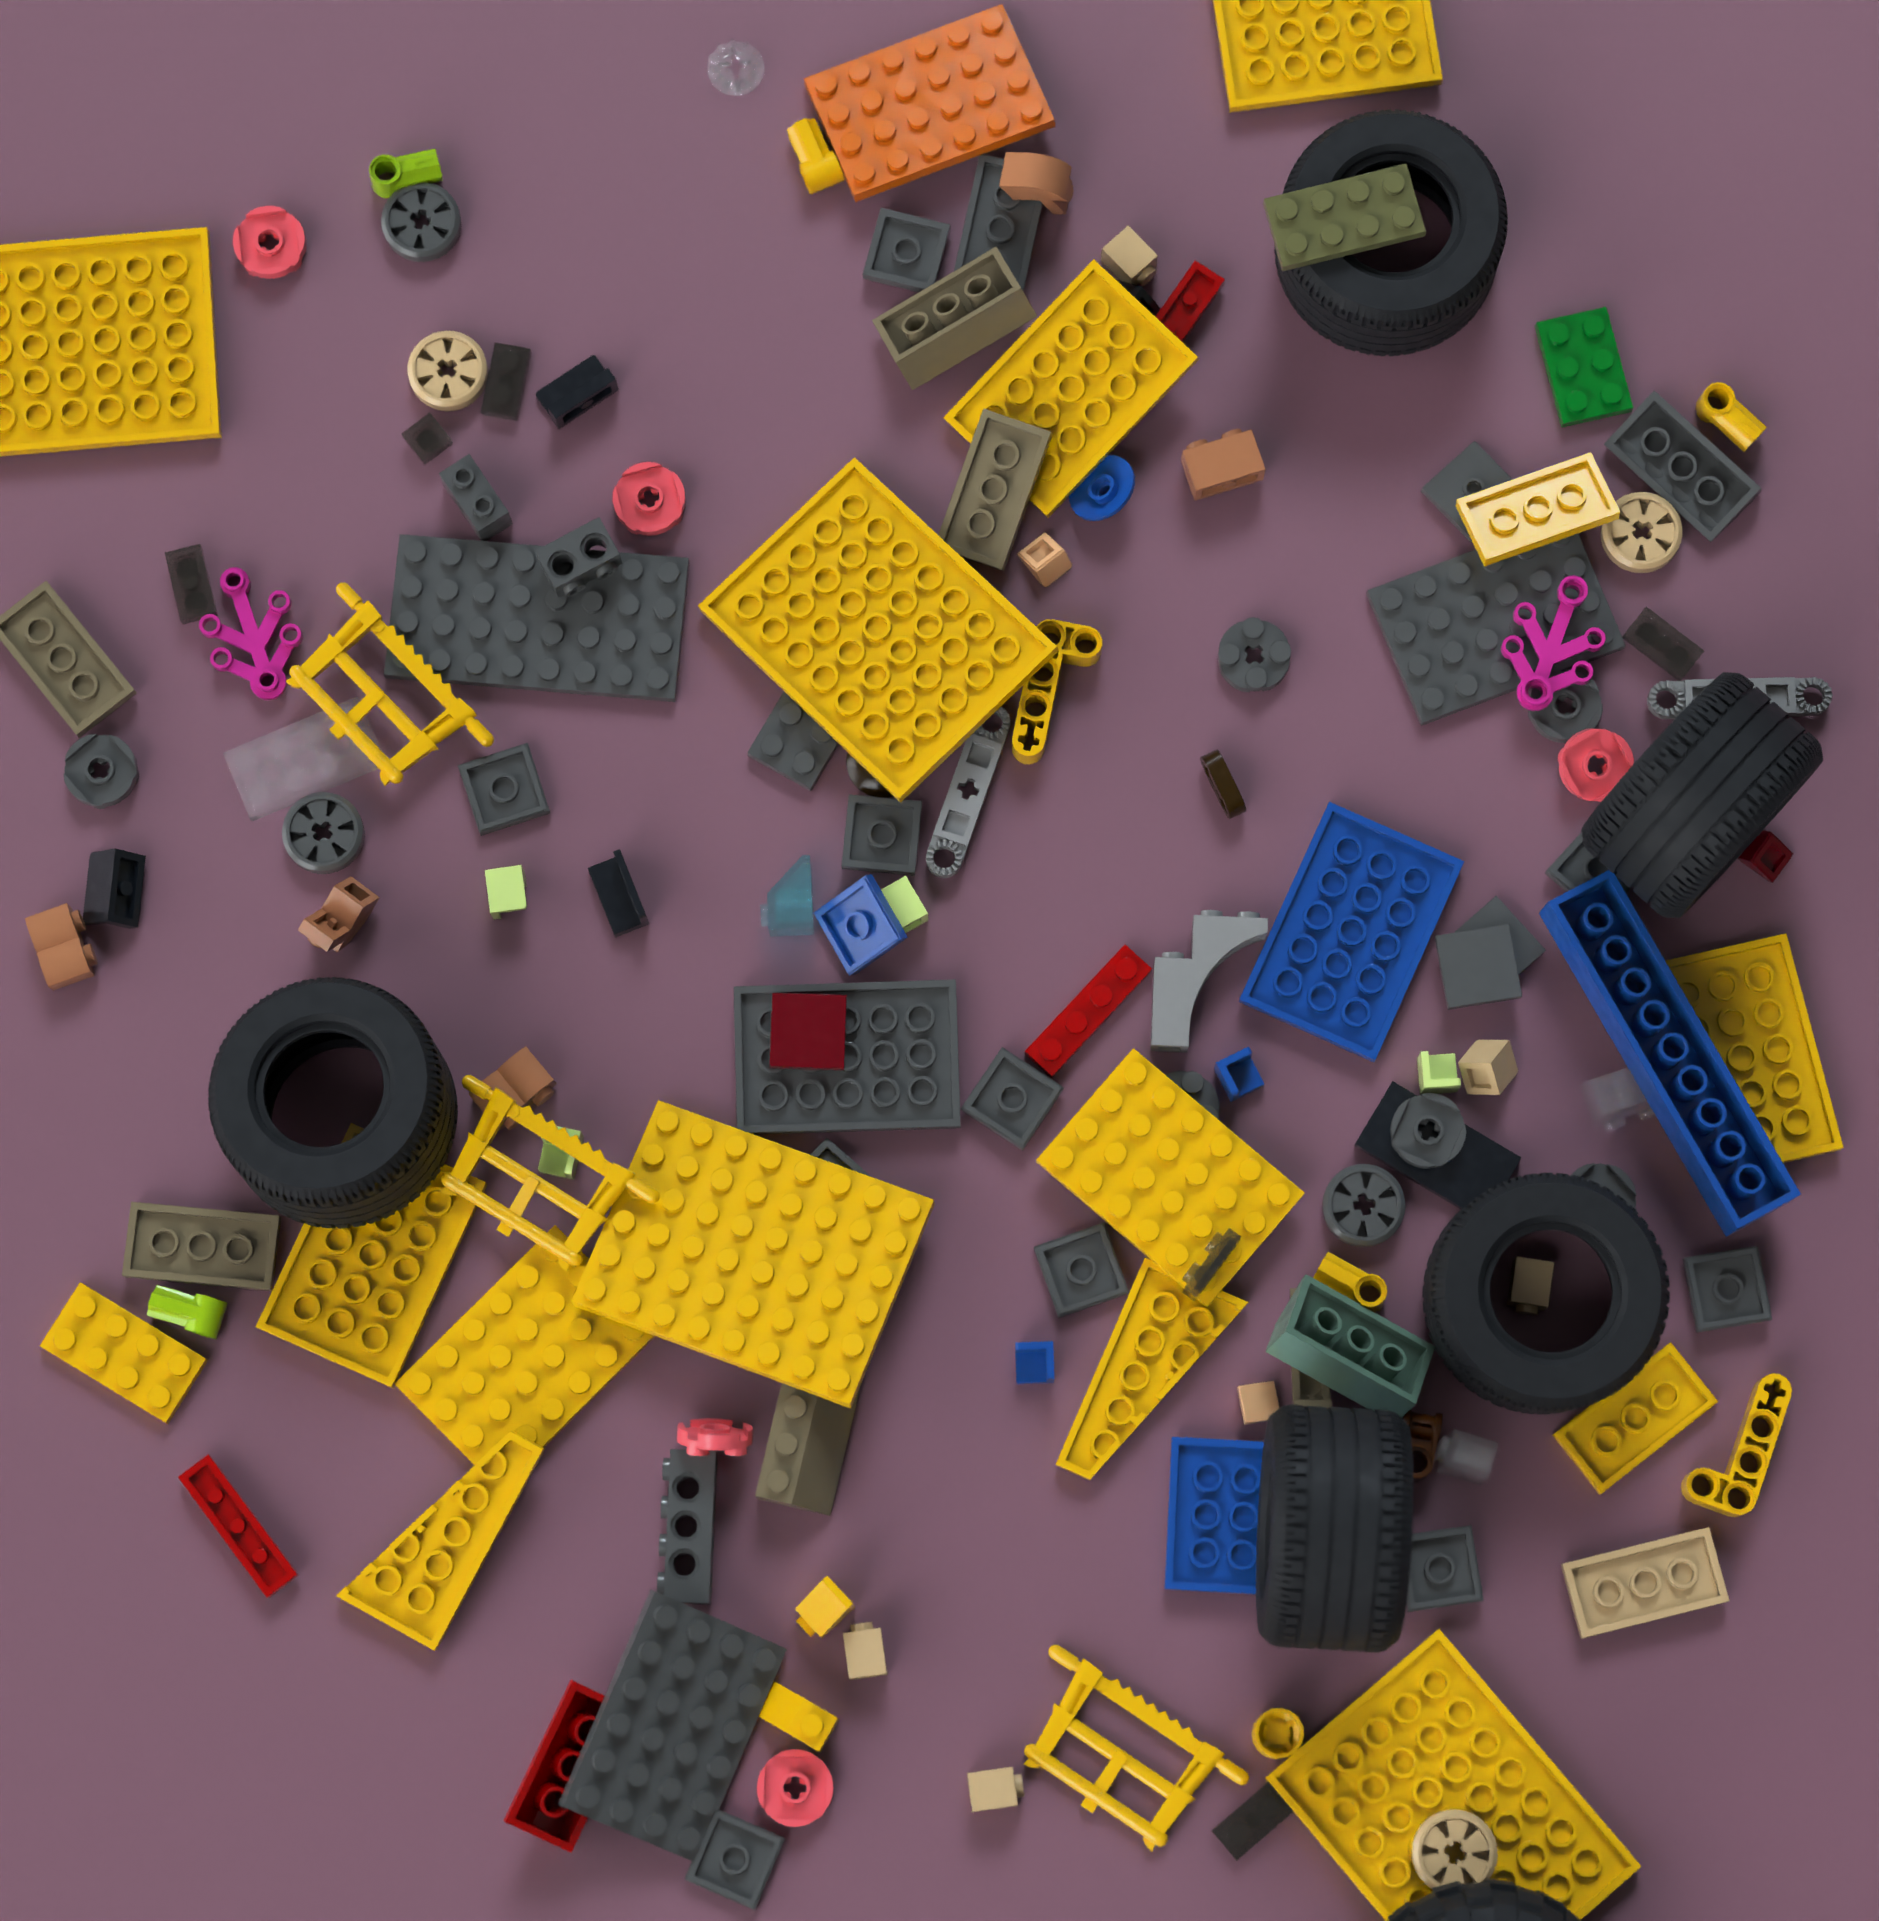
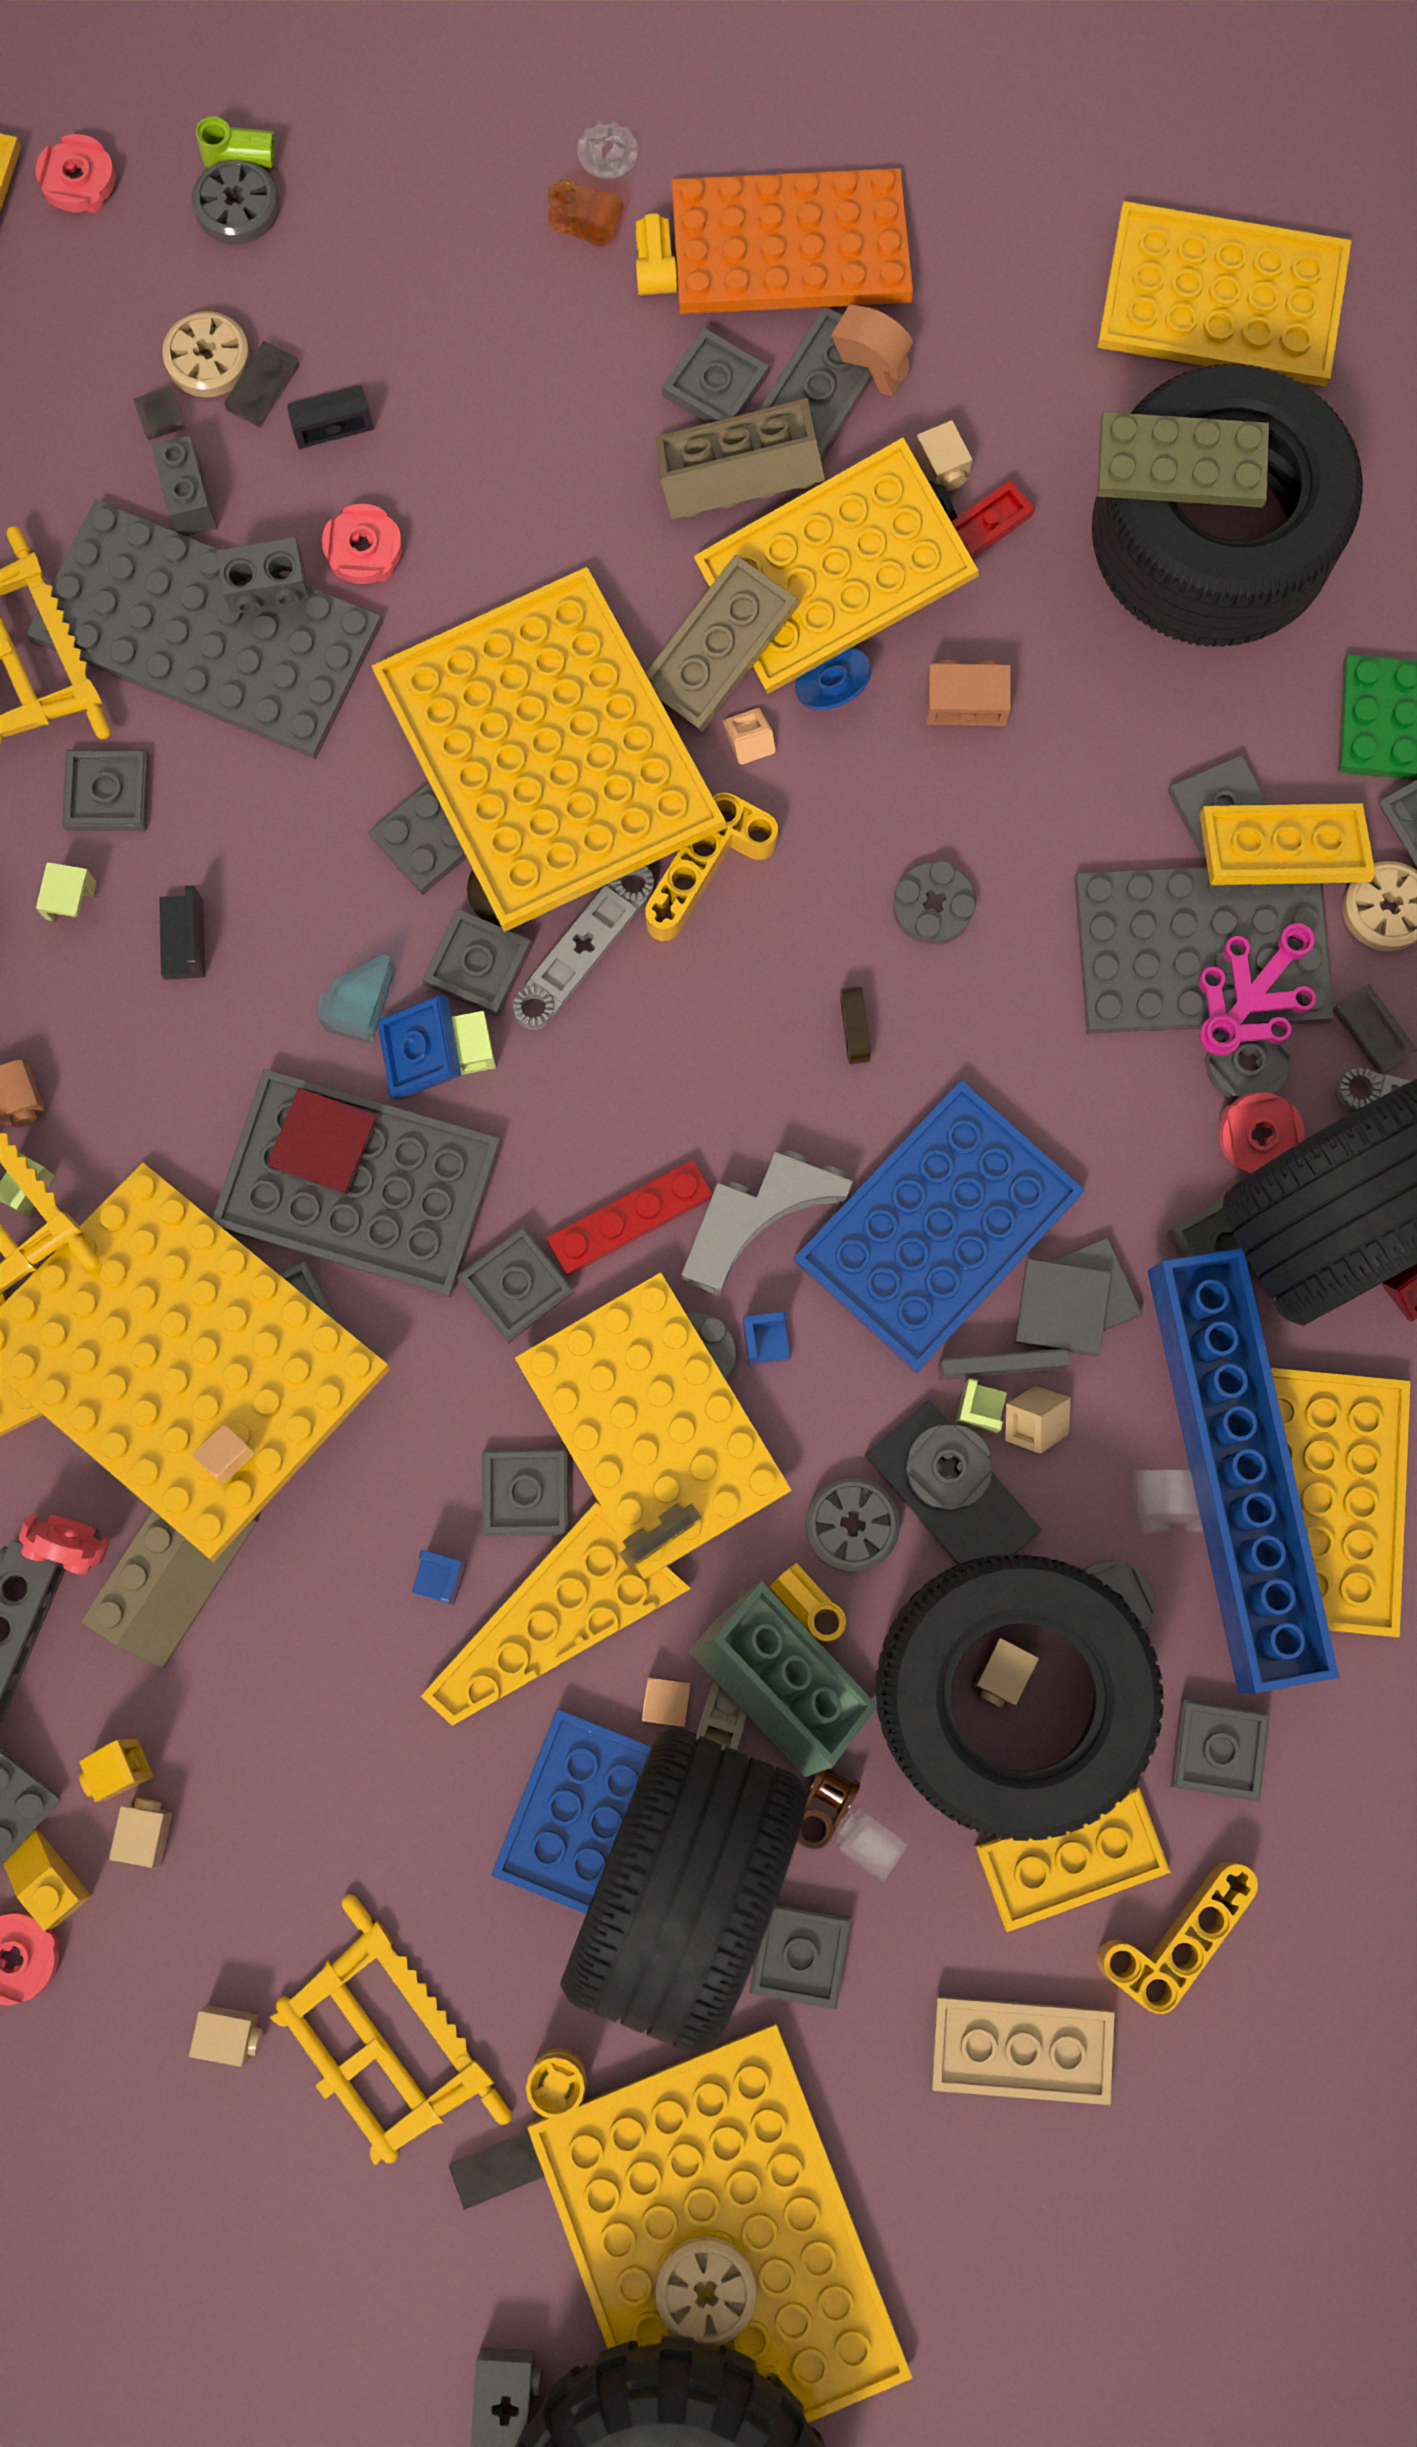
camera: 15 degrees right, 0 degrees up
(741, 135) = (587, 214): none -> clear orange piece
(829, 1316) = (223, 1454): none -> light nougat slope
(1444, 1030) = (1004, 1364): none -> dark grey tile

